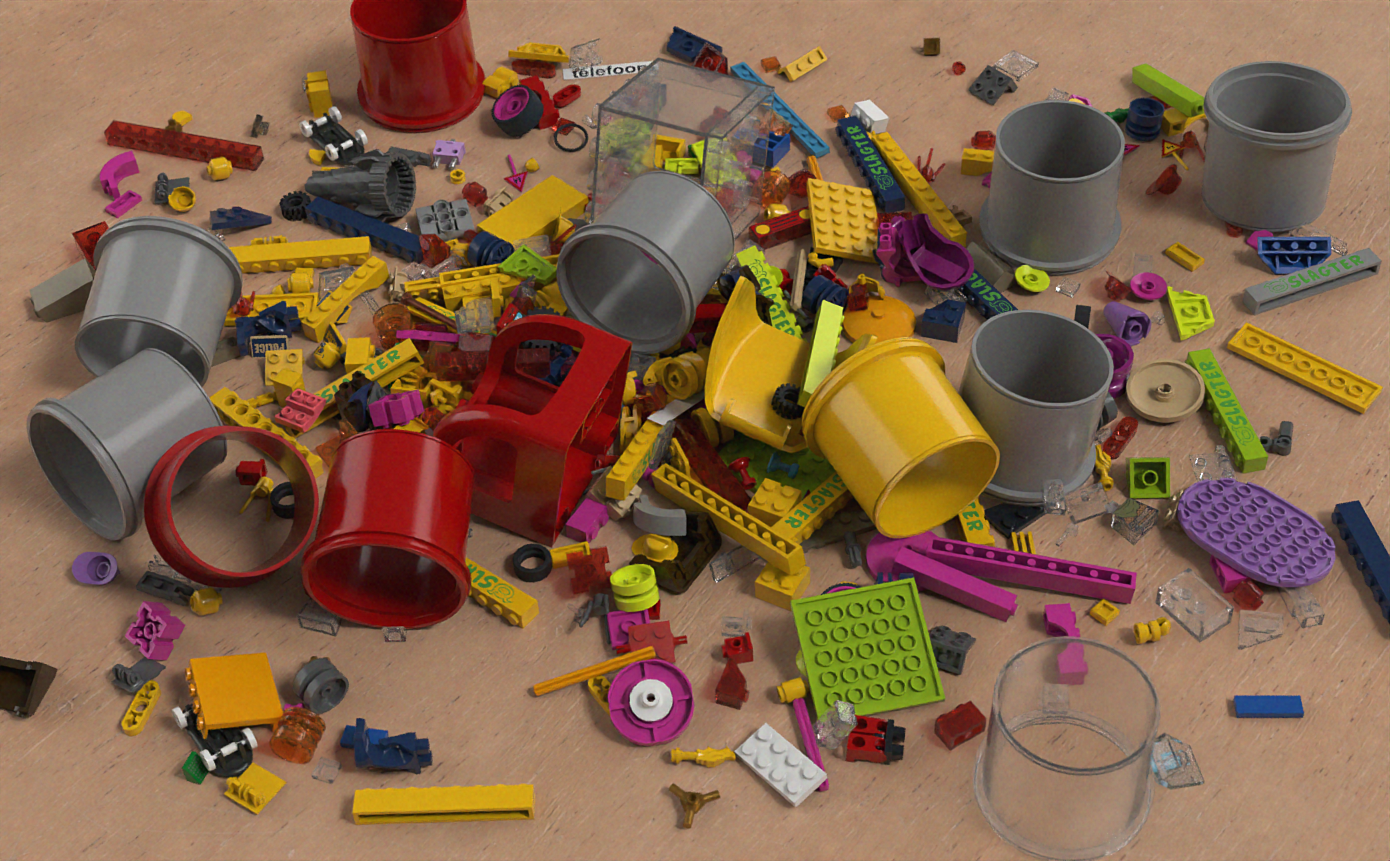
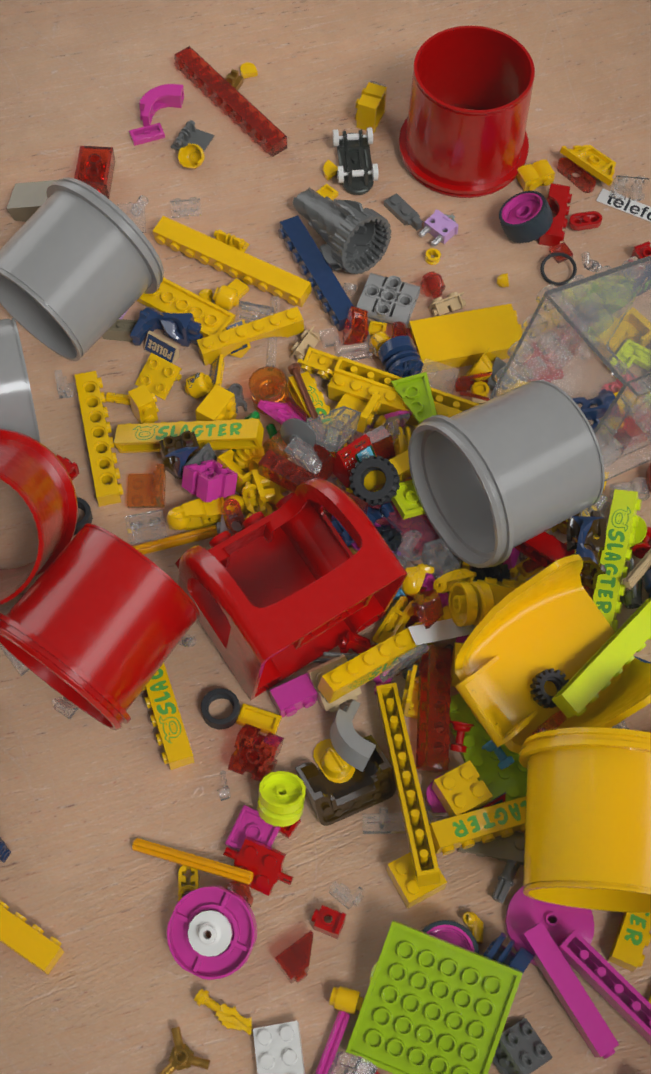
camera: 30 degrees right, 15 degrees up
(219, 168) = (241, 140): yellow head -> none
(236, 217) = (219, 199): dark blue wing -> none
(243, 306) = (163, 293): clear red plant -> none
(258, 126) = (302, 113): clear smoke tile -> none
(294, 205) = (276, 206): black tyre -> none
(301, 410) = (133, 435): coral slope -> none
(452, 324) = (296, 427): none -> dark grey dish
(468, 339) = (303, 455): none -> clear brick
(516, 180) = (483, 288): piece -> none
(601, 607) = (244, 795): dark grey plant -> none

